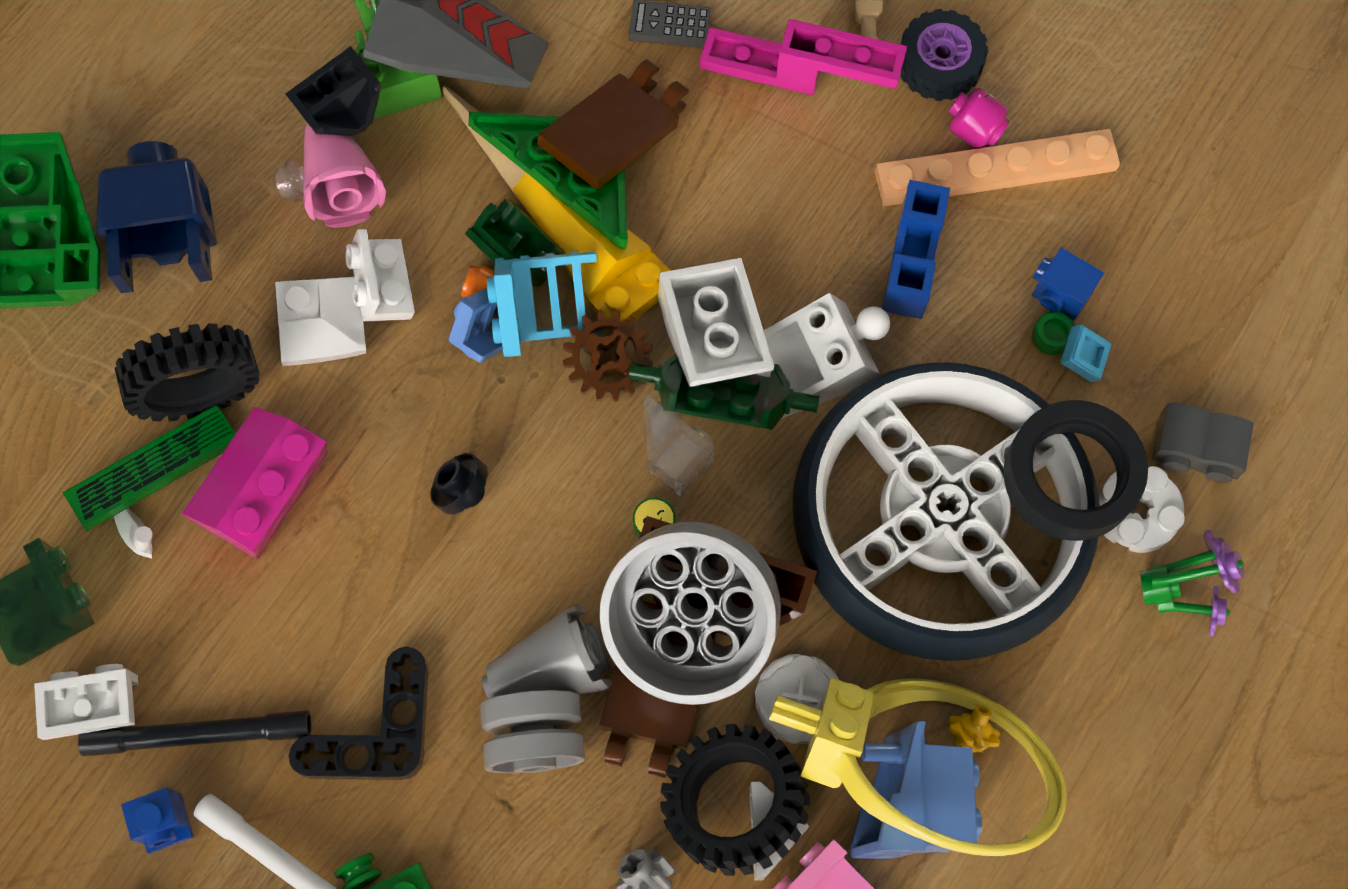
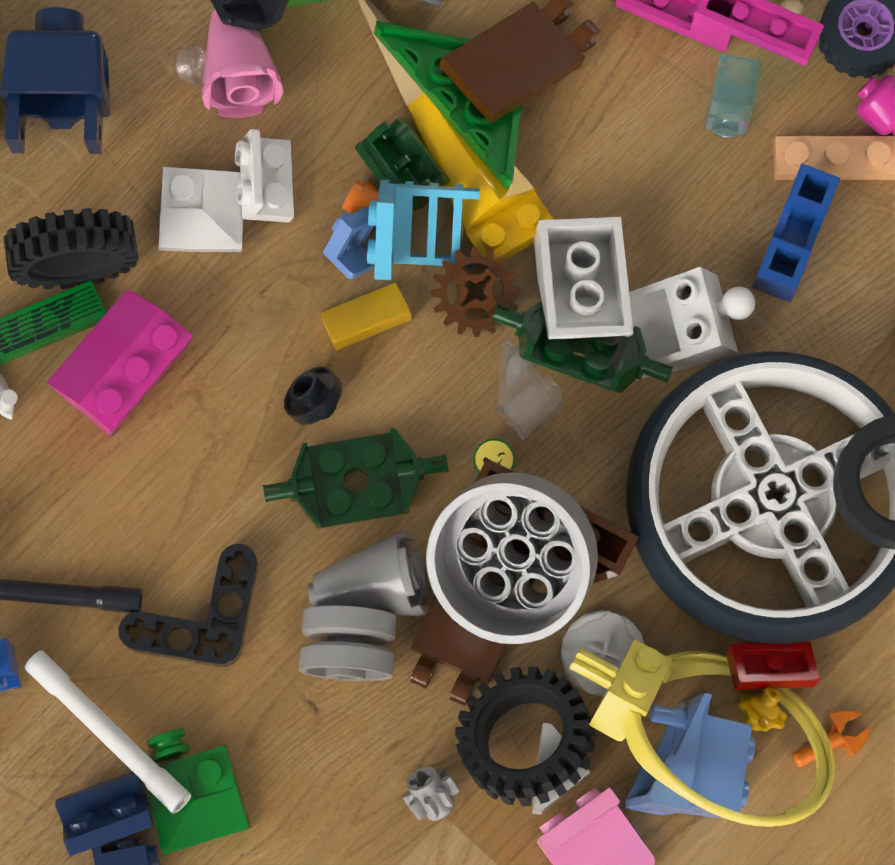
camera: 10 degrees right, 5 degrees up
(480, 558) = (383, 458): none -> dark green plate
(502, 398) = (366, 316): none -> yellow slope
(829, 128) = (732, 95): none -> clear light blue piece
(975, 682) = (772, 665): none -> red plate
(1072, 750) = (838, 720): none -> orange bar

